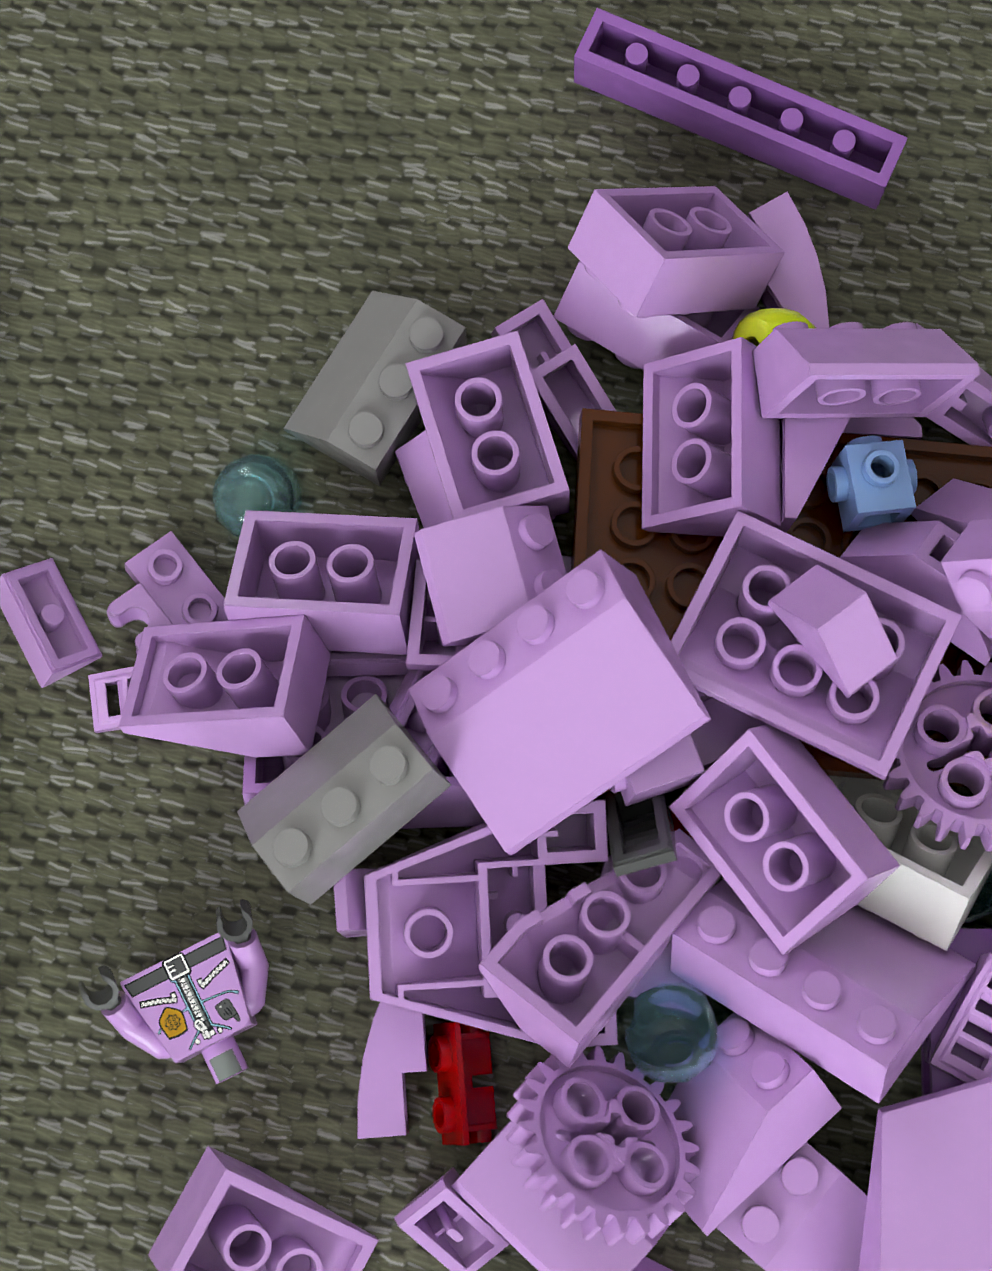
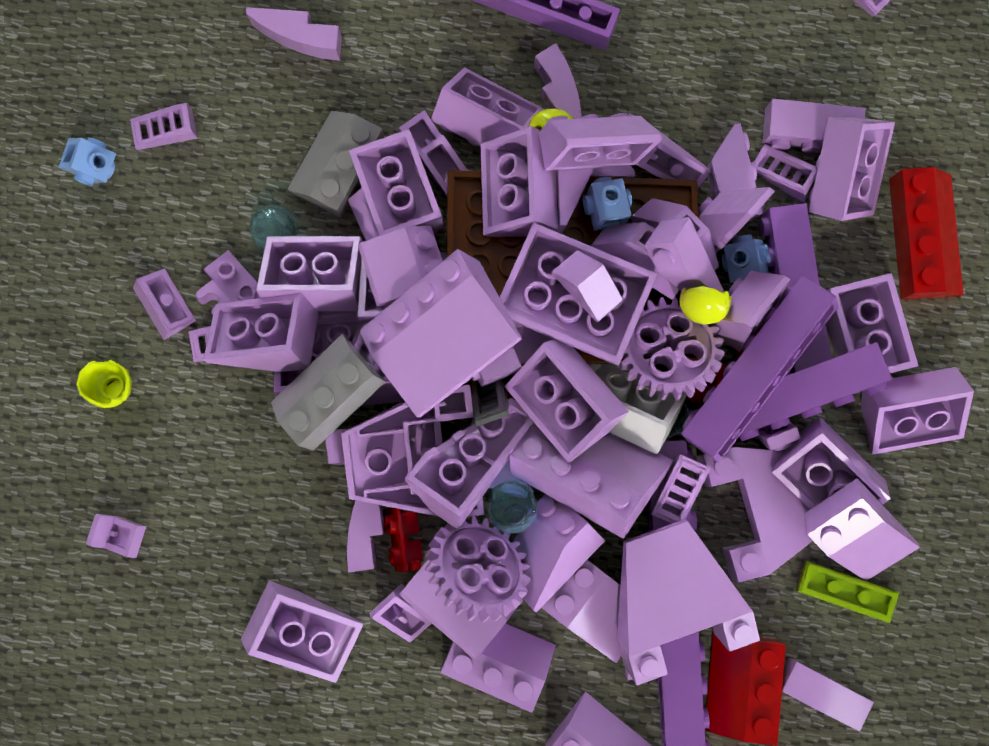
camera: 10 degrees left, 5 degrees up
(90, 320) = (185, 133): none -> lavender slope
(192, 998) = (255, 503): torso -> none
(320, 149) = (297, 32): none -> lavender slope
(674, 250) = (494, 79): lavender brick -> none

